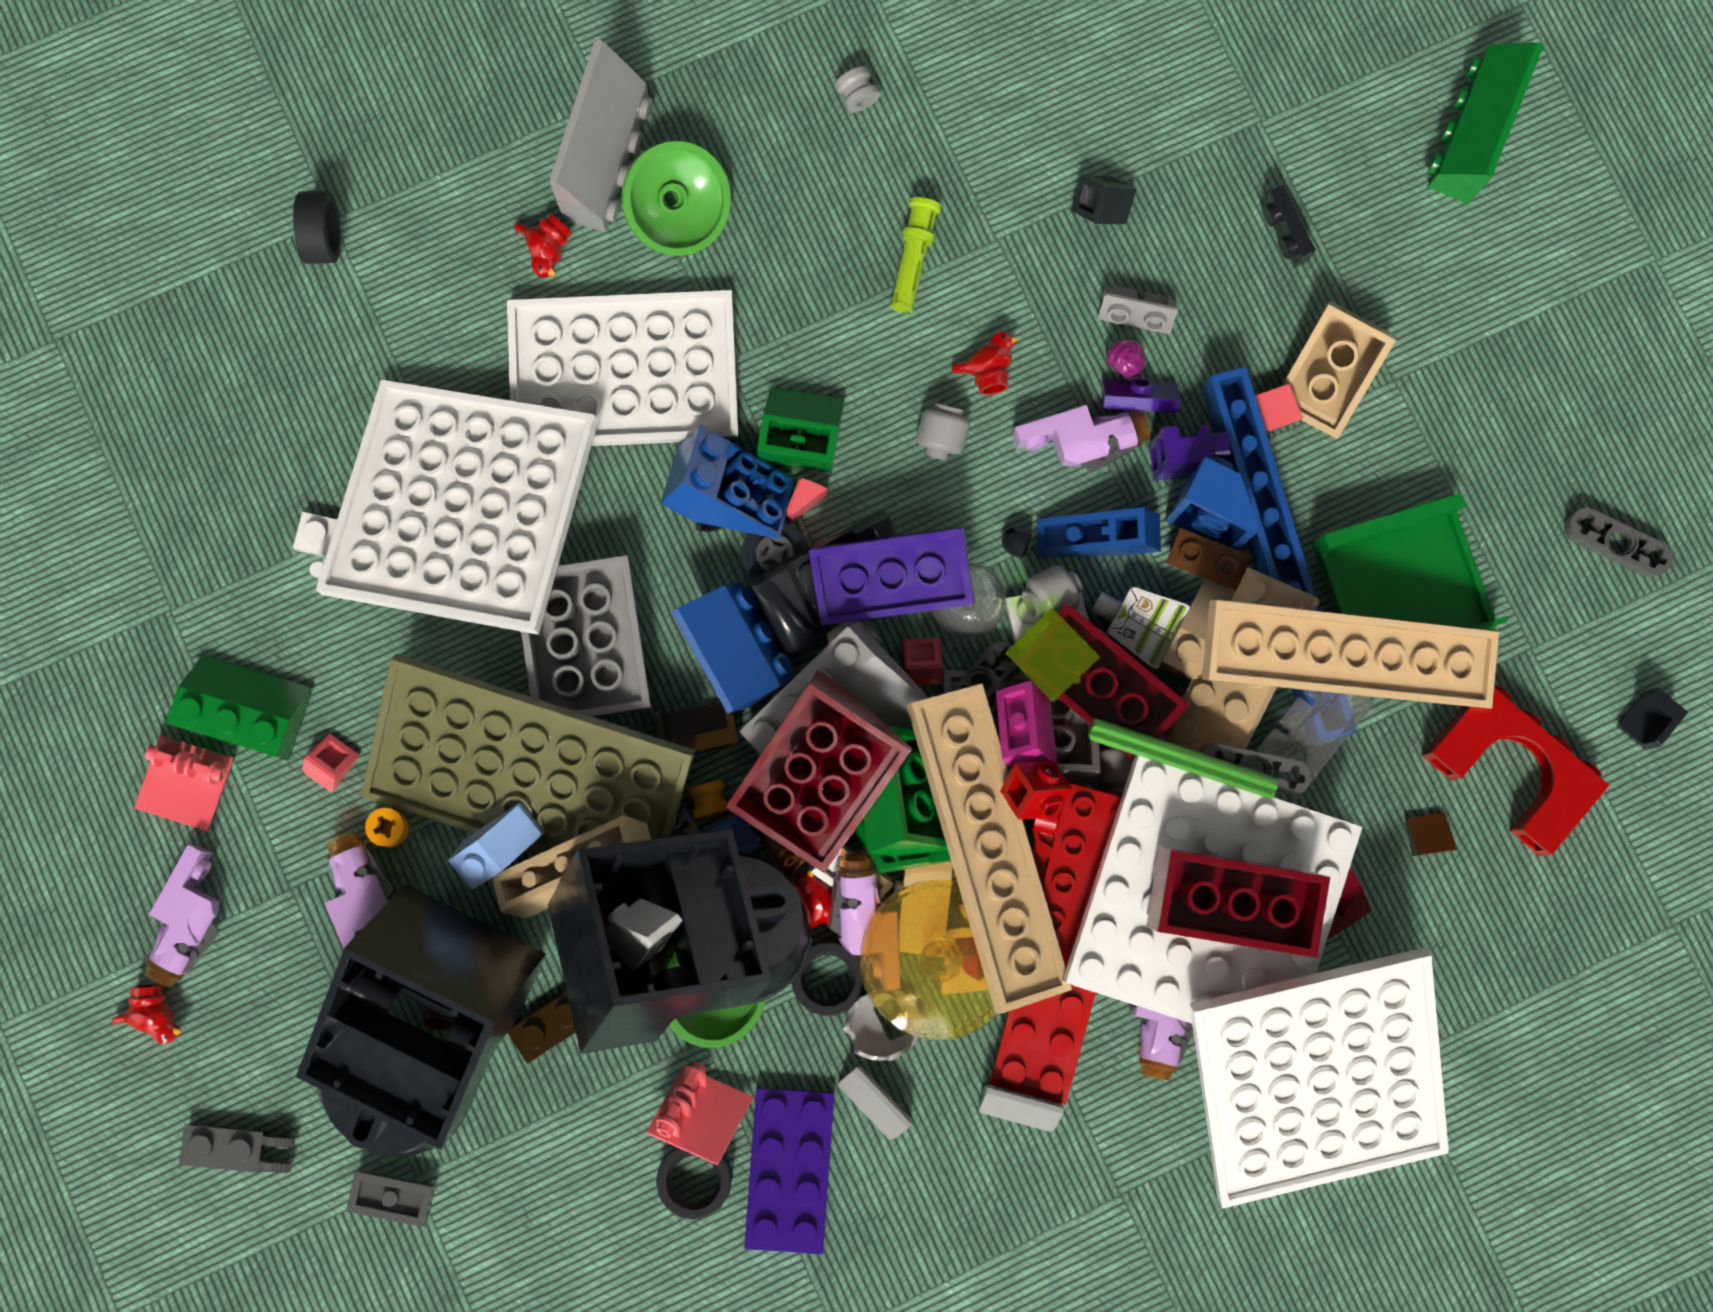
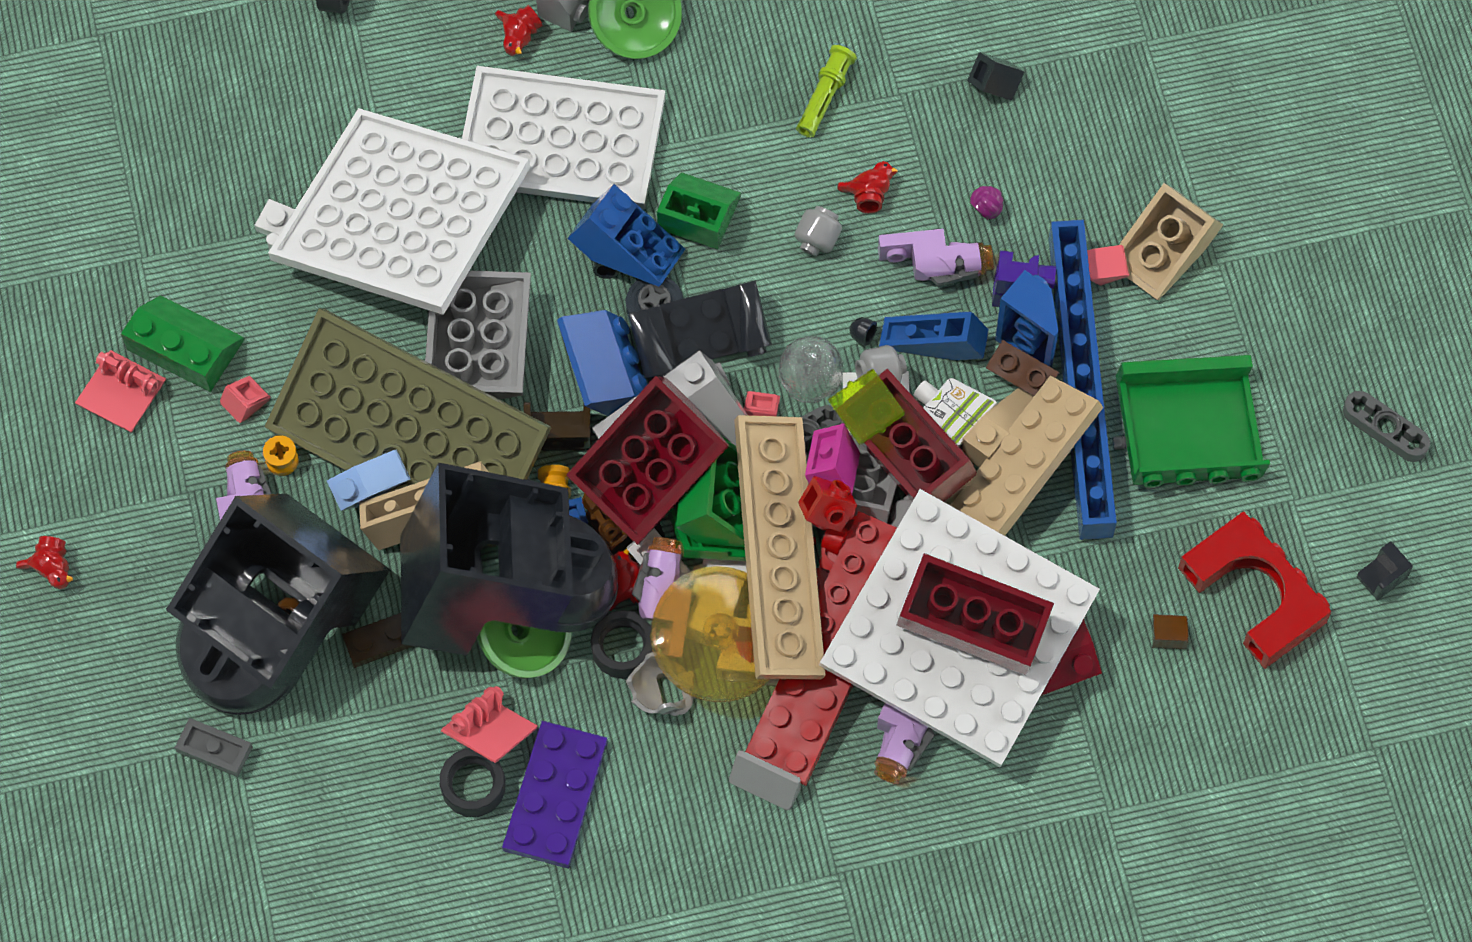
camera: 20 degrees right, 15 degrees down
(188, 919) = (98, 493): lavender plate -> none
(232, 1148) = (91, 685): dark grey hinge -> none
(640, 931) = (476, 547): white slope -> none
(805, 496) = (690, 263): coral slope -> none
(875, 1102) = (640, 752): light grey slope -> none
(892, 575) = (747, 325): dark purple plate -> none
(1140, 395) = (993, 232): dark purple plate -> none
(1152, 313) = (1001, 167): light grey hinge -> none
(1182, 758) = (921, 482): bright green axle -> none
(1282, 764) = (1031, 522): dark grey beam -> none
(1292, 235) = (1151, 132): black plate -> none
(1313, 733) = (1076, 517): clear windscreen -> none
(1321, 1077) = (1024, 789): white plate -> none
(1349, 654) = (1120, 452): tan plate -> none
(1483, 119) = (1332, 69): green slope -> none

